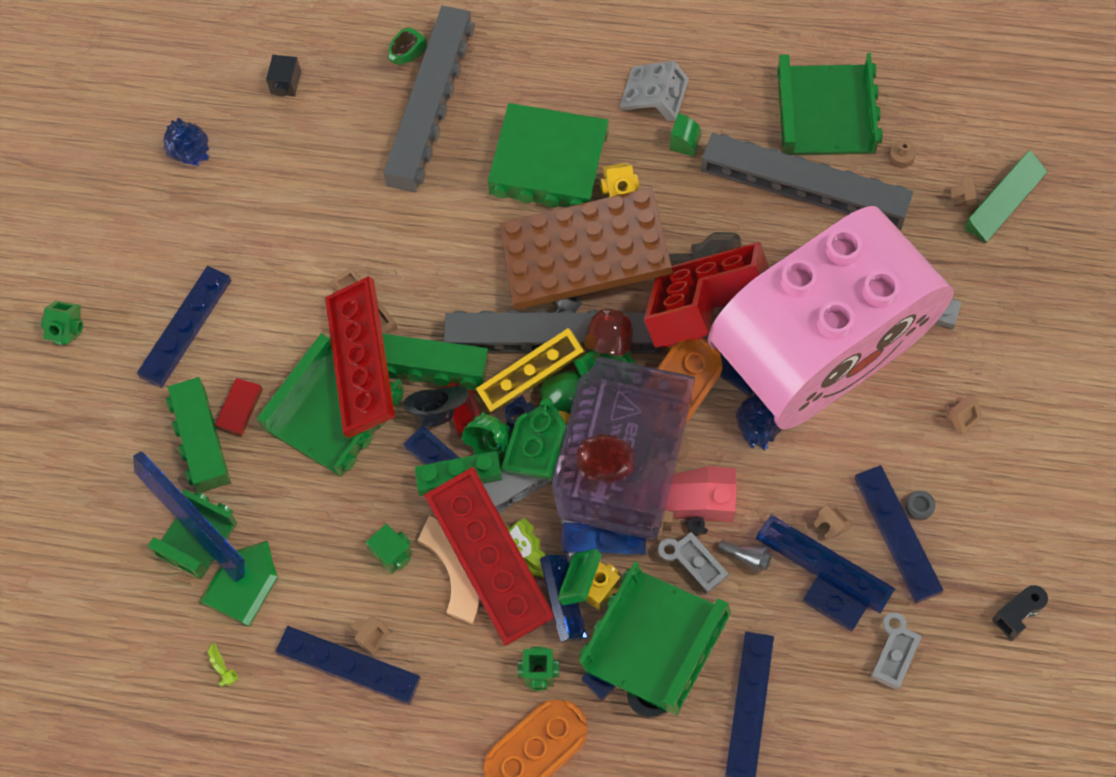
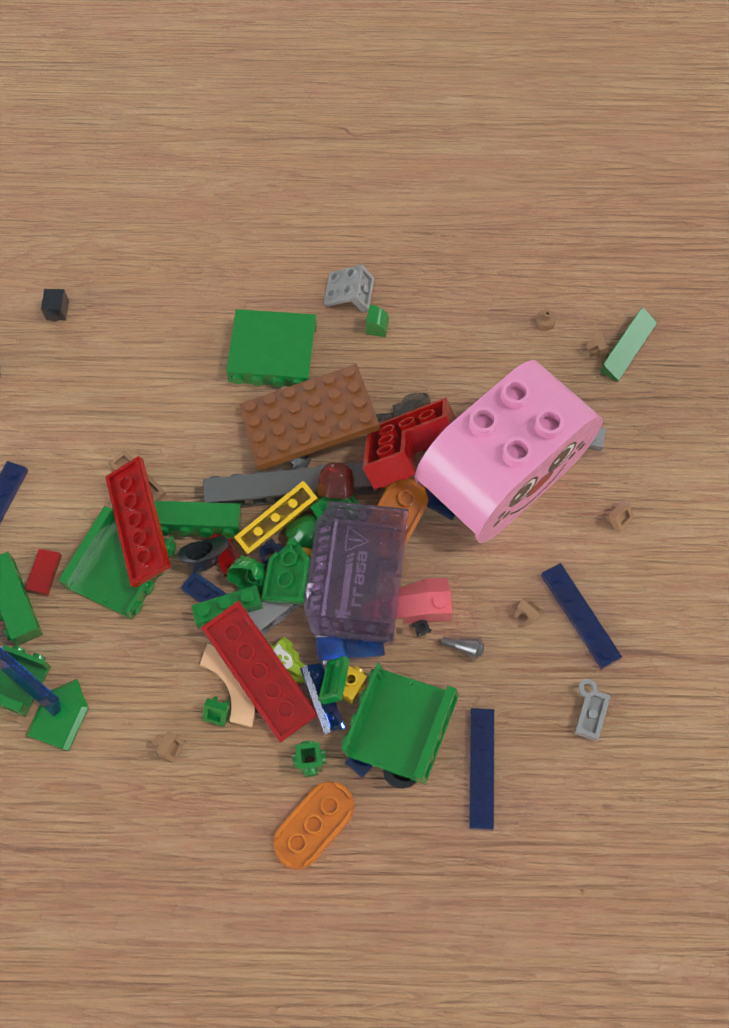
camera: 10 degrees left, 0 degrees up
(228, 677) = (55, 795): lime piece -> none
(348, 665) = (153, 773): clear blue plate -> none
(390, 548) = (178, 673): green brick -> none
(406, 46) = (150, 273): rock -> none
(428, 99) = (172, 313): dark grey brick -> none
(431, 599) = (215, 711): none -> green tile
(605, 458) = (344, 582): clear red hair -> none
(618, 173) = (326, 356): yellow brick -> none
(695, 561) = (425, 656): light grey hinge -> none
(756, 423) = (460, 539): clear blue hair -> none
(802, 178) = (470, 345): dark grey brick -> none
(825, 563) = (527, 646): clear blue plate -> none
(828, 108) = (484, 290): green panel -> none
(834, 604) = (538, 677): clear blue plate -> none
(920, 505) = (595, 591): dark grey tile -> none
(1024, 605) = (688, 660): black leg -> none

